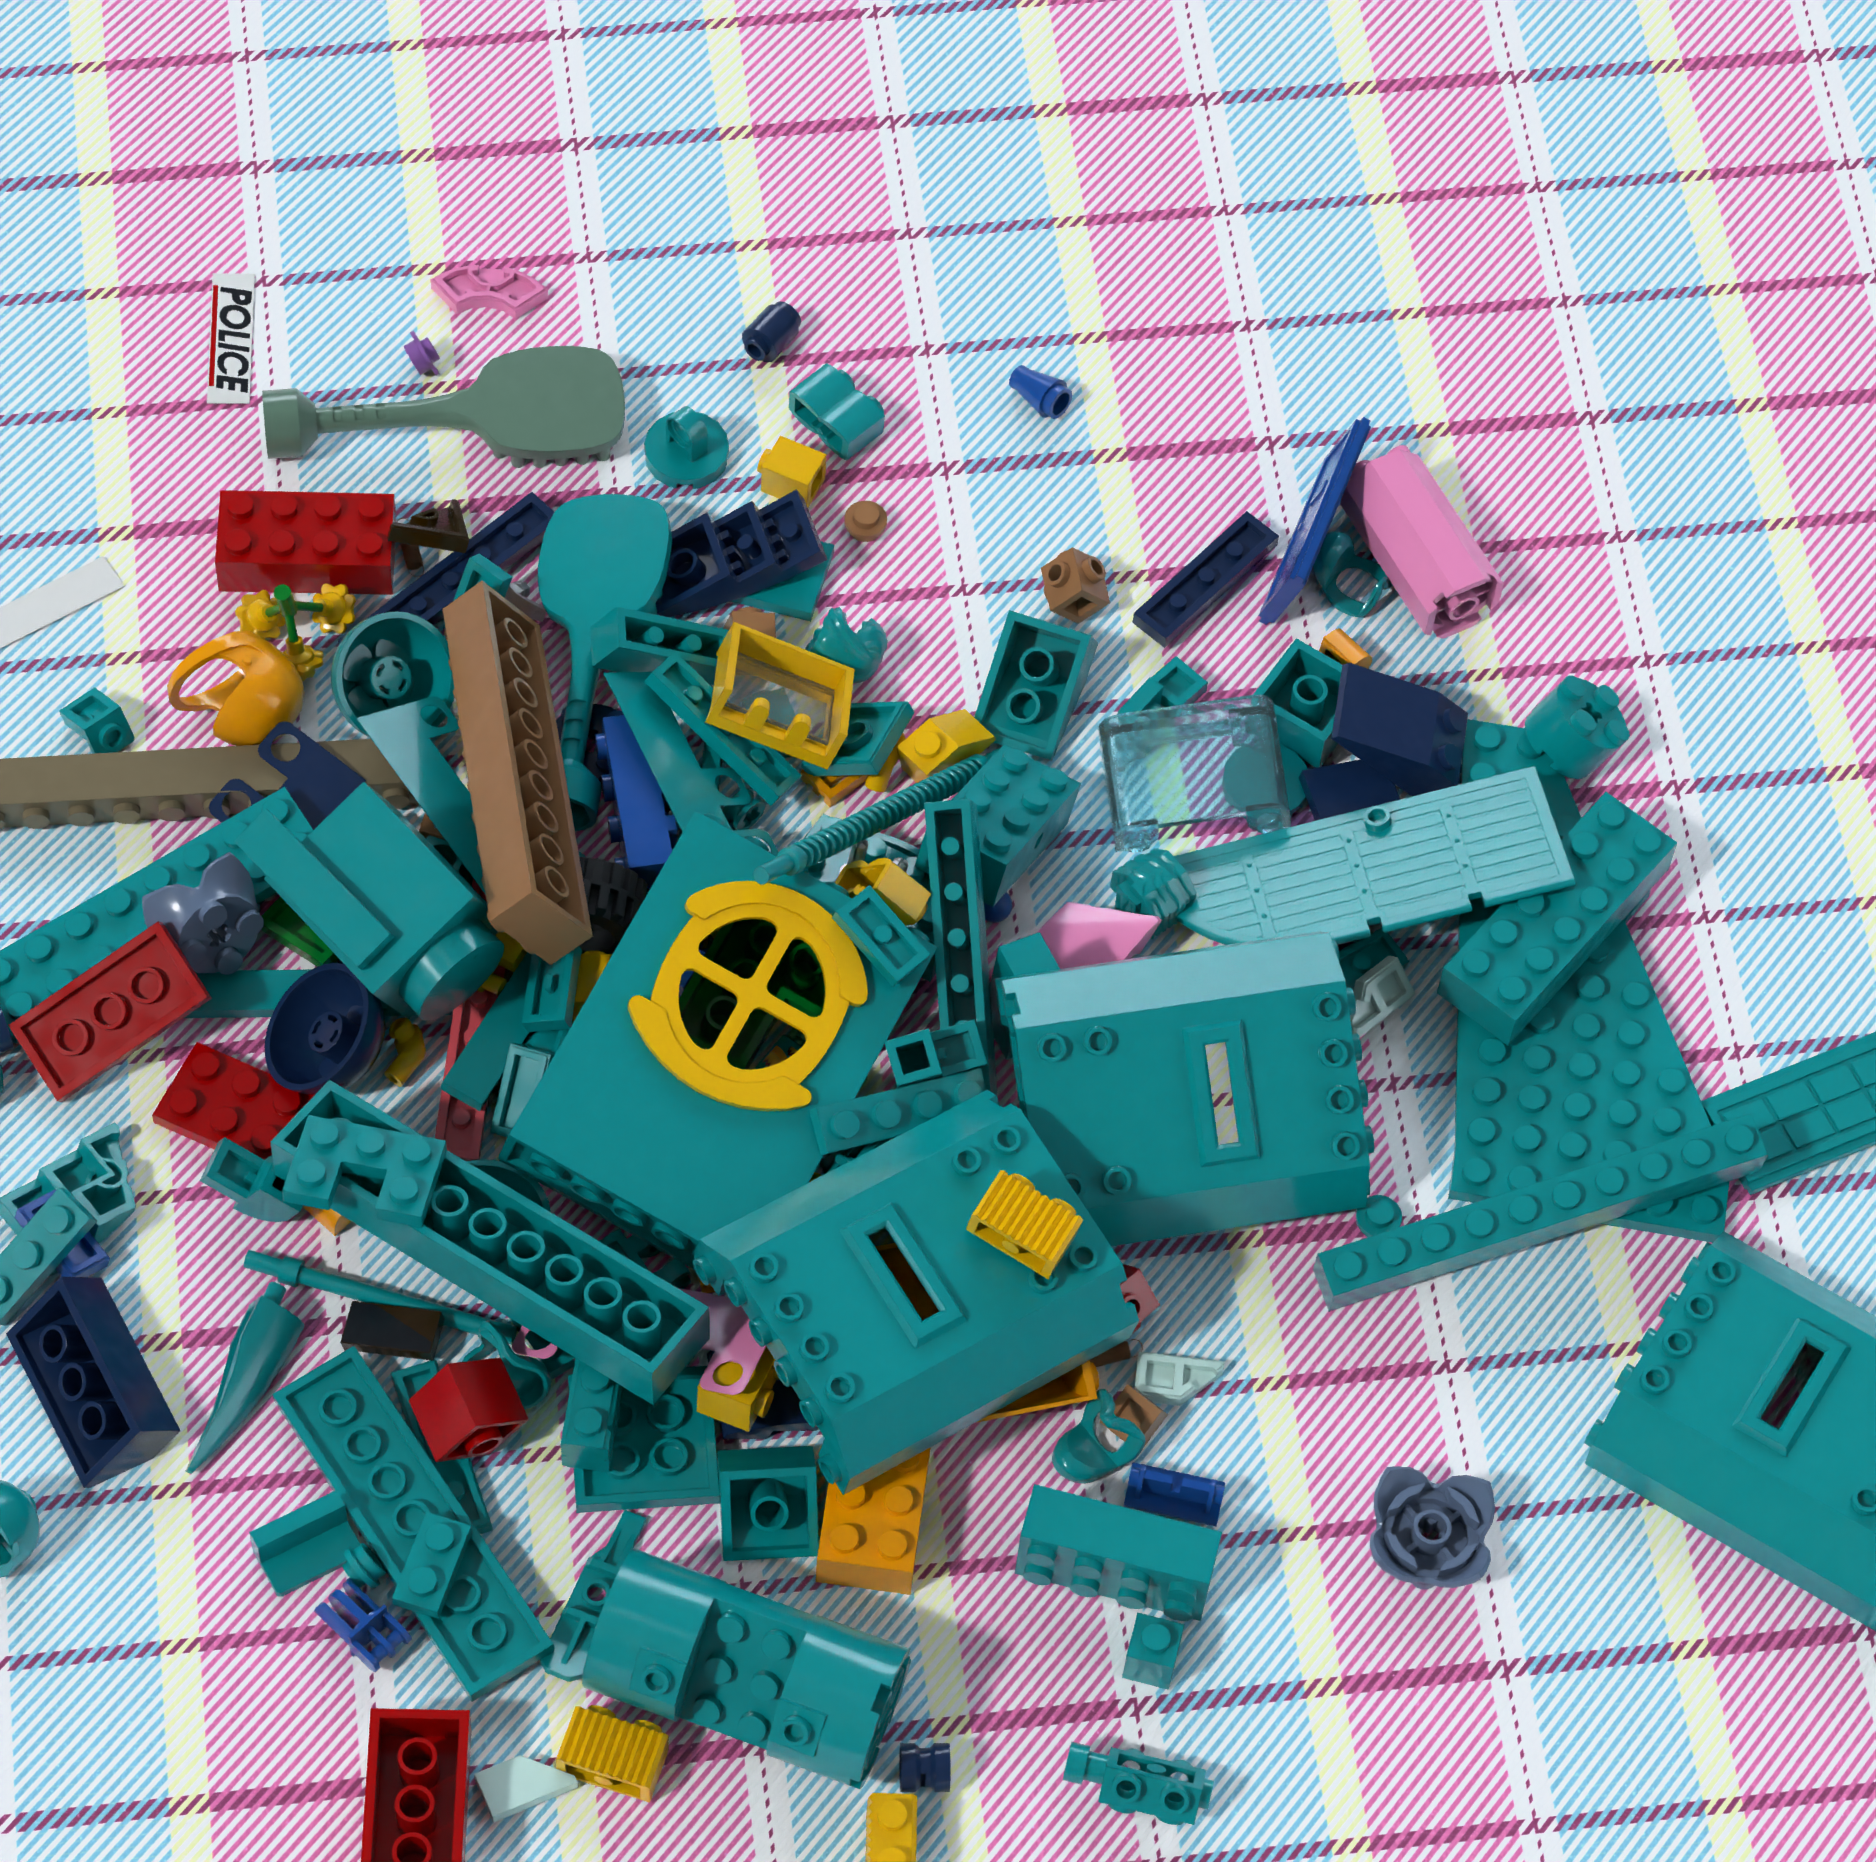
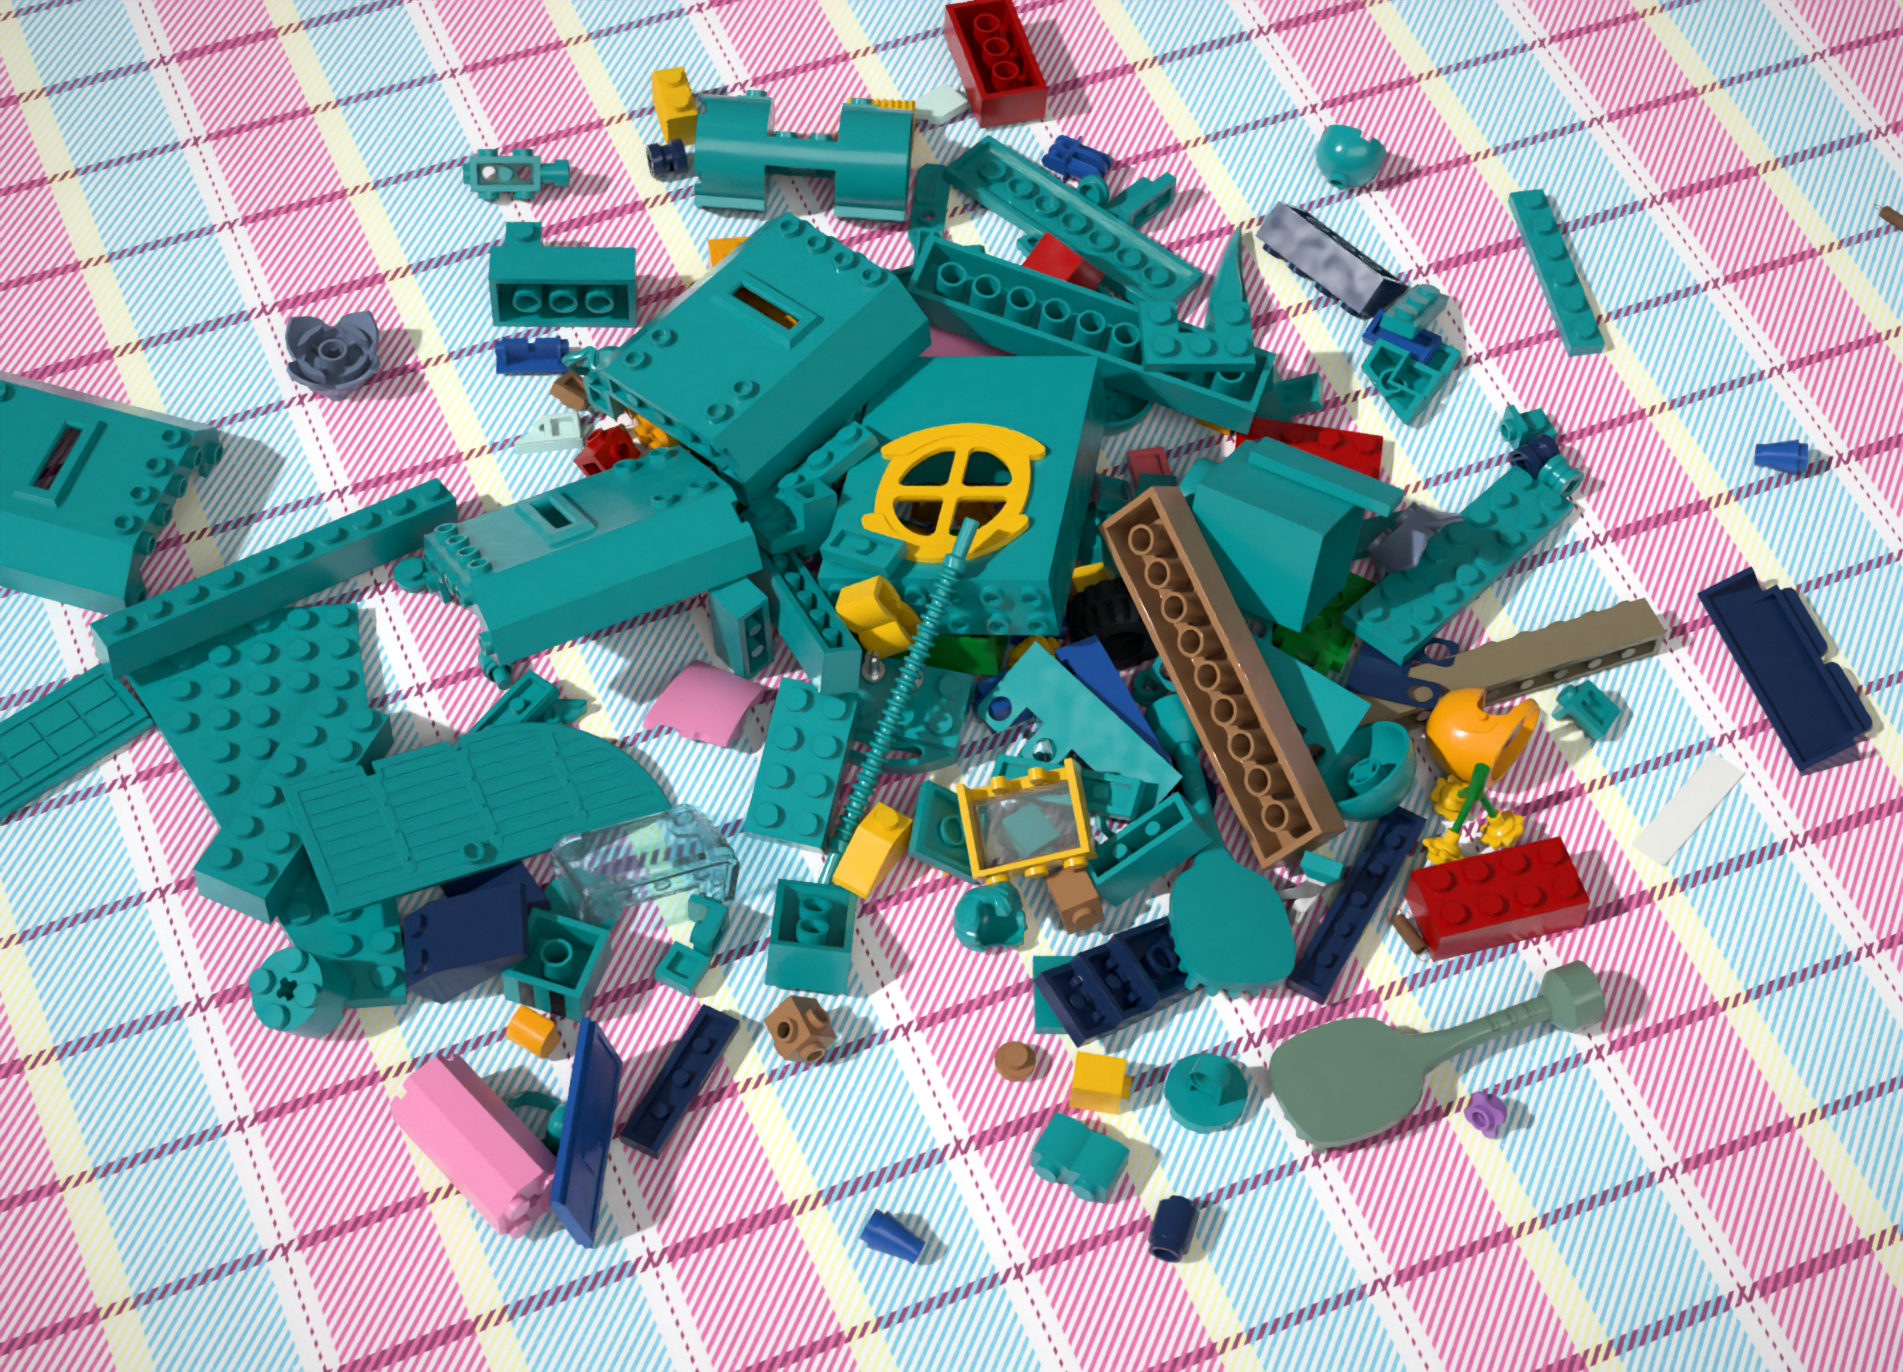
camera: 165 degrees right, 5 degrees down
(110, 1011) = (1449, 469): red plate -> none
(230, 338) = (1669, 1103): sticker -> none
(432, 1565) = (1045, 190): teal plate -> none
(434, 529) = (1389, 929): dark brown tile -> none
(492, 288) = (1459, 1215): bright pink tile -> none
(1025, 1223) = (683, 342): yellow brick -> none
(1153, 886) = (663, 766): teal hair -> none
(1379, 994) = (449, 729): light aqua tile -> none

